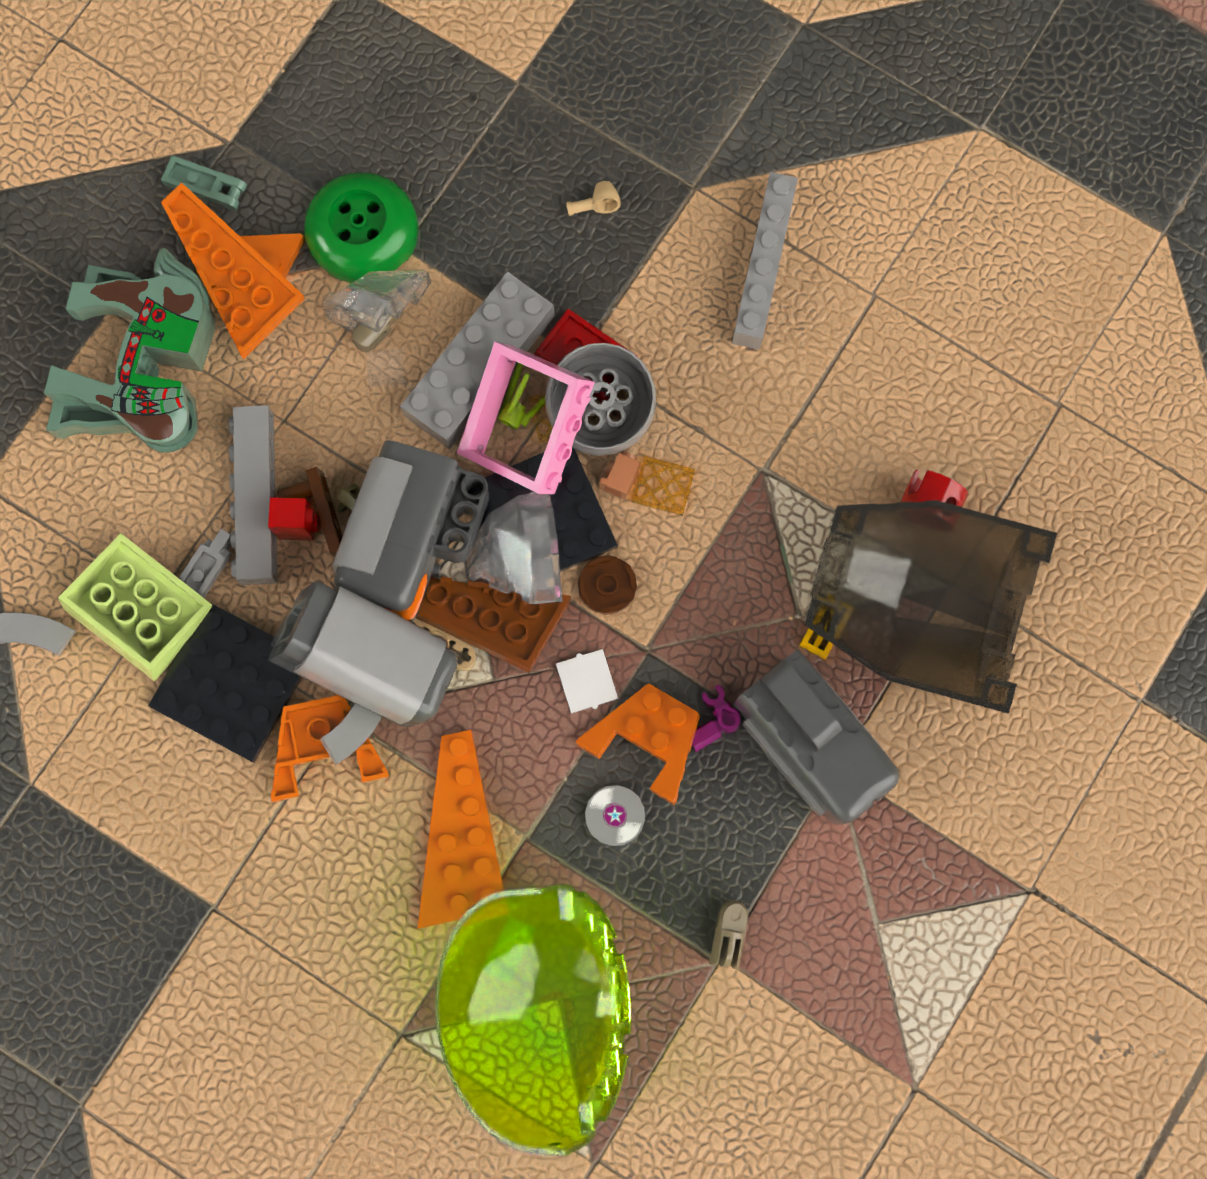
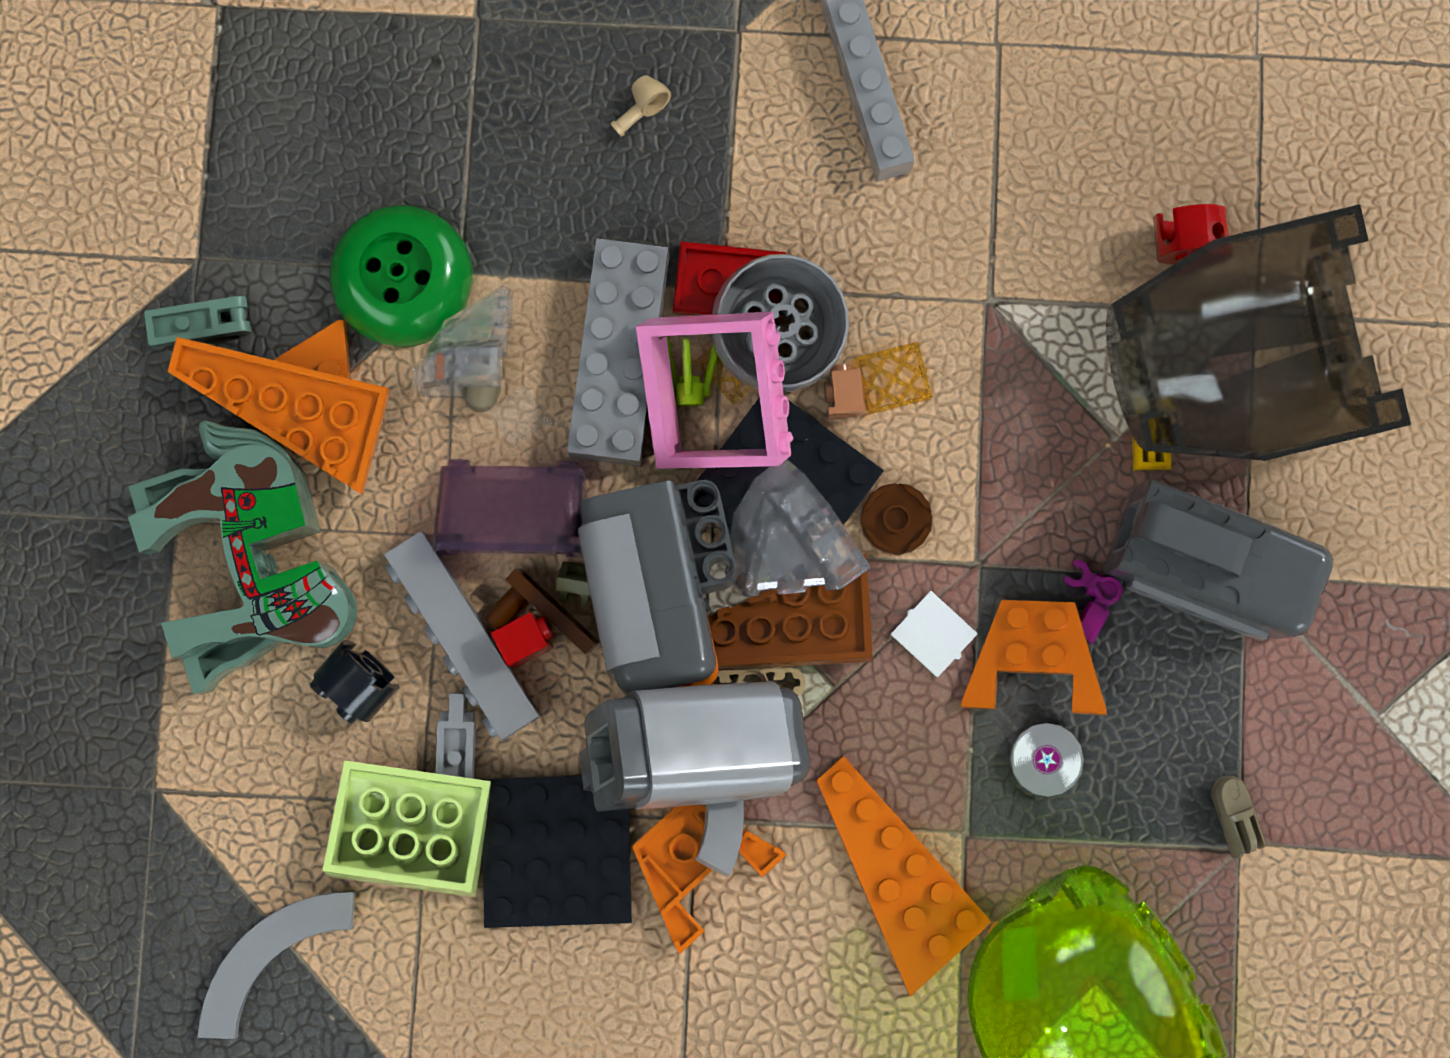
camera: 30 degrees left, 5 degrees up
(159, 483) = (354, 683): none -> black brick
(335, 423) = (509, 509): none -> clear purple windscreen

